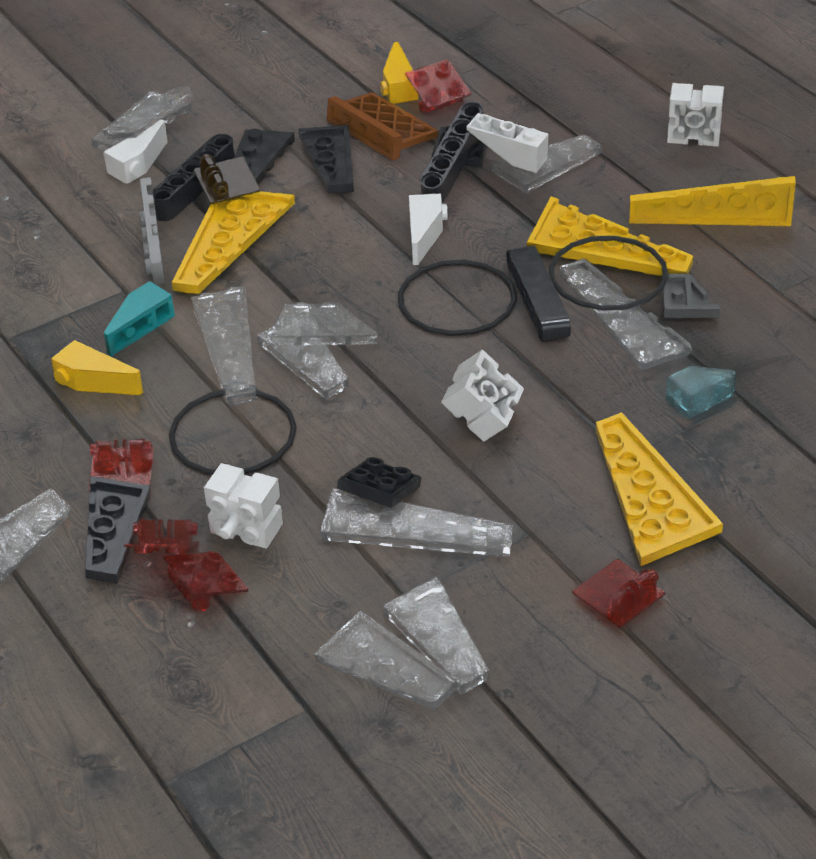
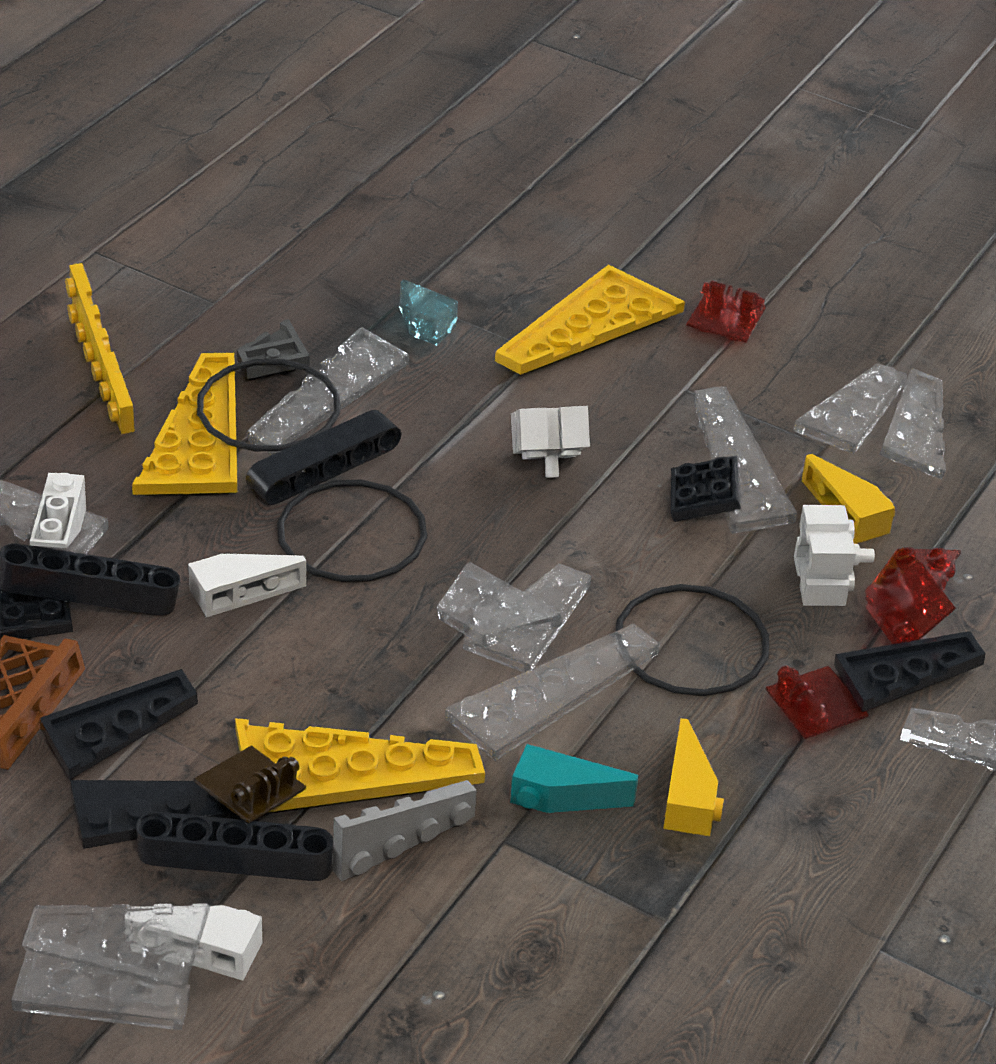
camera: 120 degrees left, 0 degrees up
(308, 567) = (863, 500): none -> yellow slope

